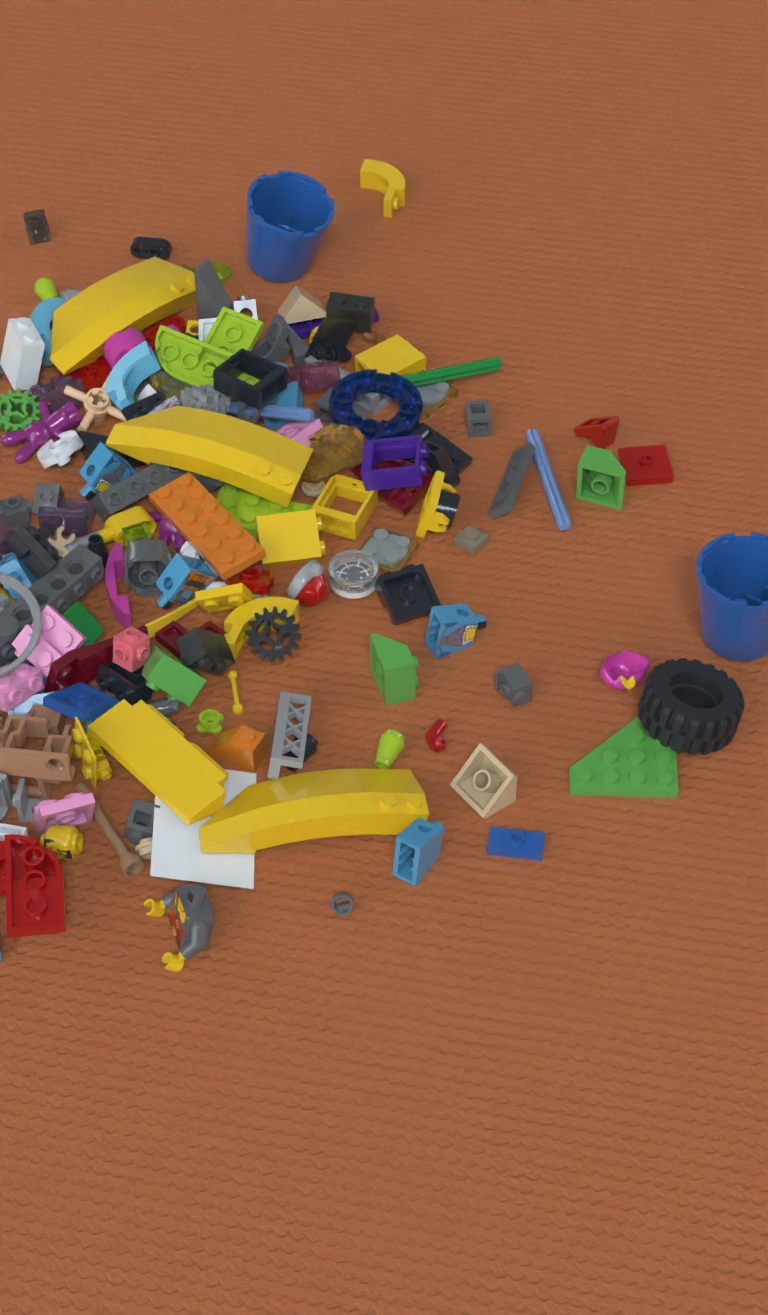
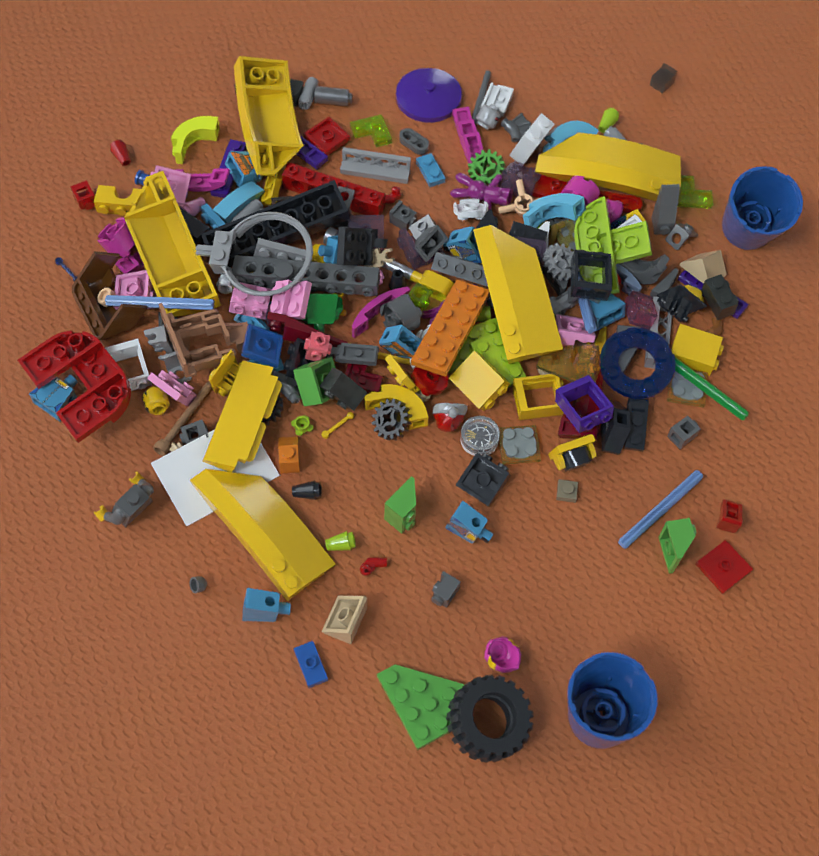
camera: 55 degrees right, 15 degrees up
(77, 493) = (430, 241): none -> dark grey slope
(151, 248) = (695, 149): black beam -> none
(168, 622) = (355, 354): none -> dark grey hinge
(281, 743) = (309, 471): light grey fence -> none
(511, 481) = (629, 488): dark grey plate -> none

